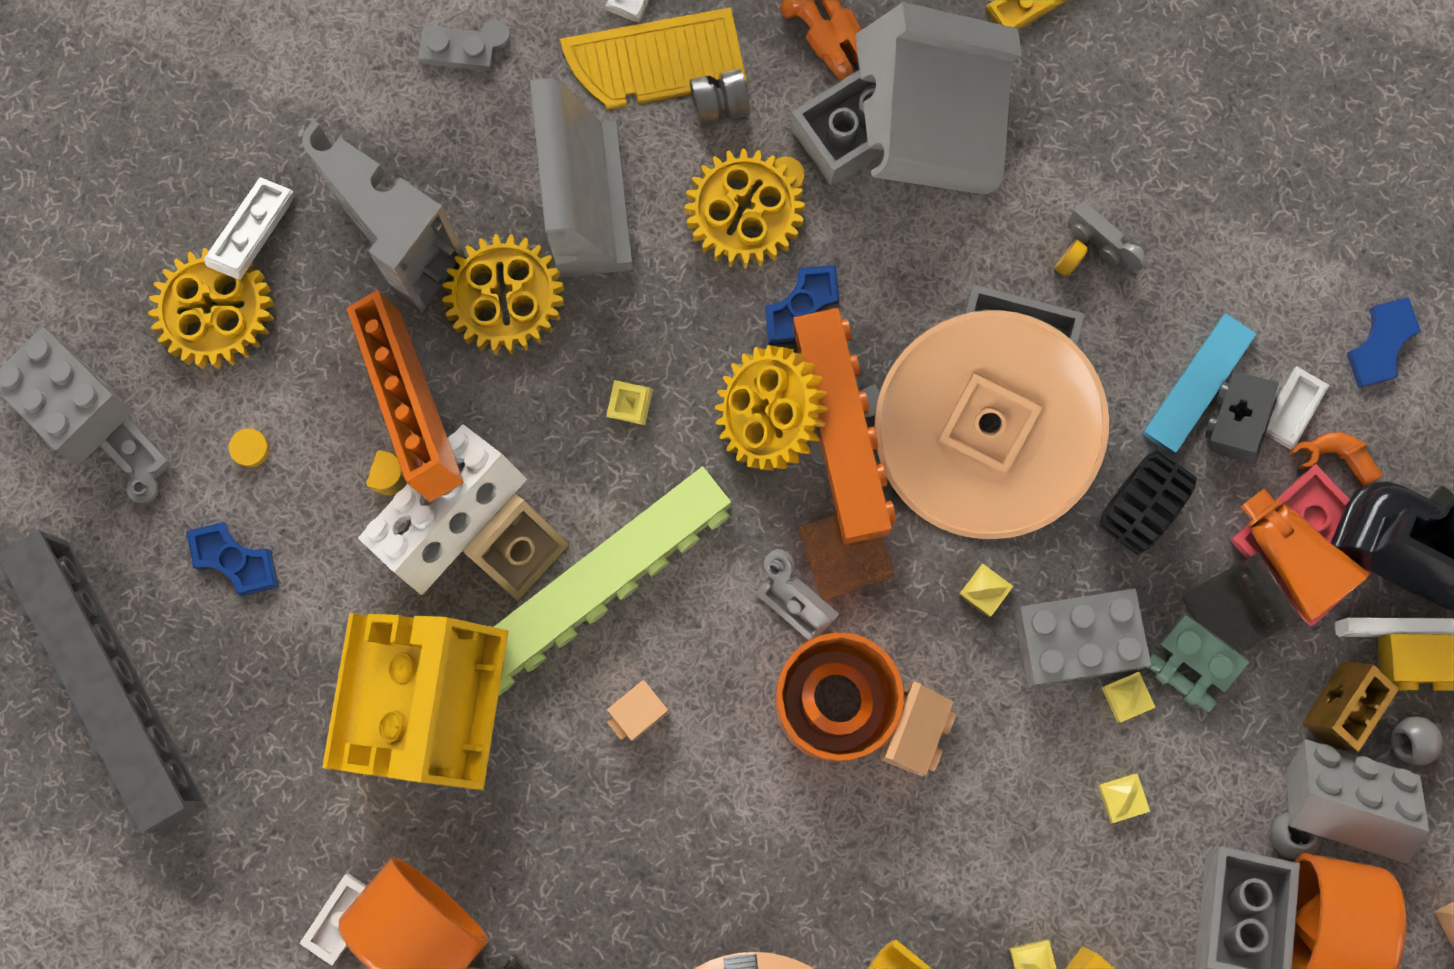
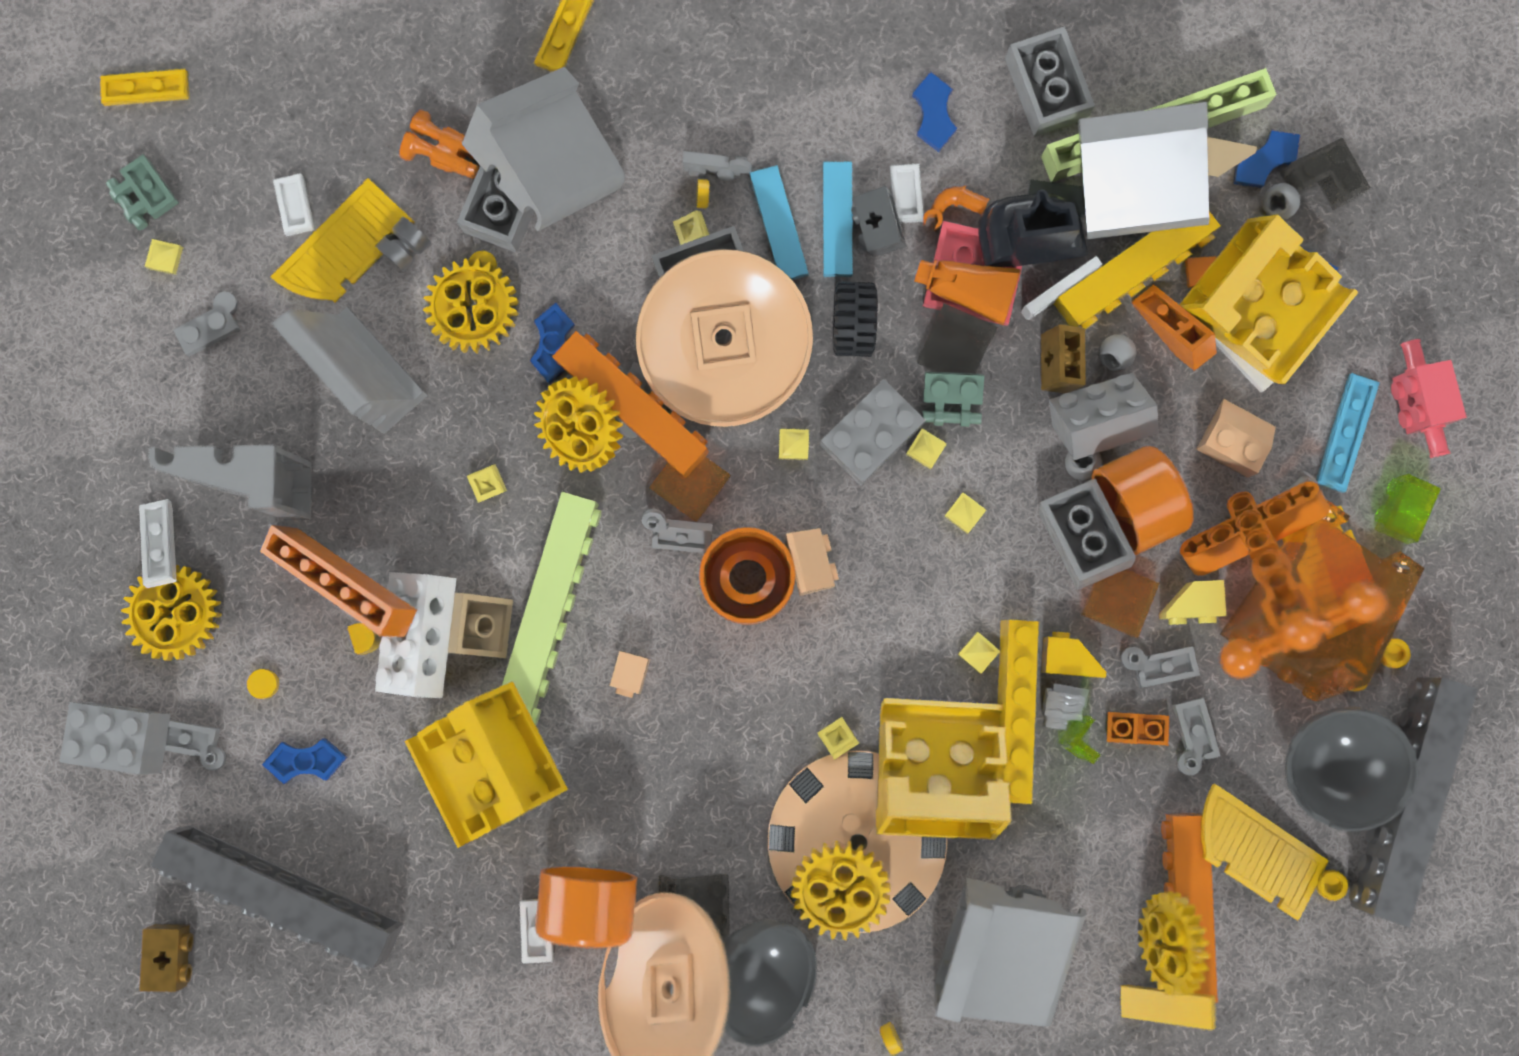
camera: 30 degrees left, 5 degrees up
(471, 299) = (336, 489): yellow gear -> none
(812, 946) = (838, 738): none -> light yellow tile
(1034, 284) = (690, 227): none -> light yellow tile
(1133, 342) = (778, 222): none -> medium azure tile

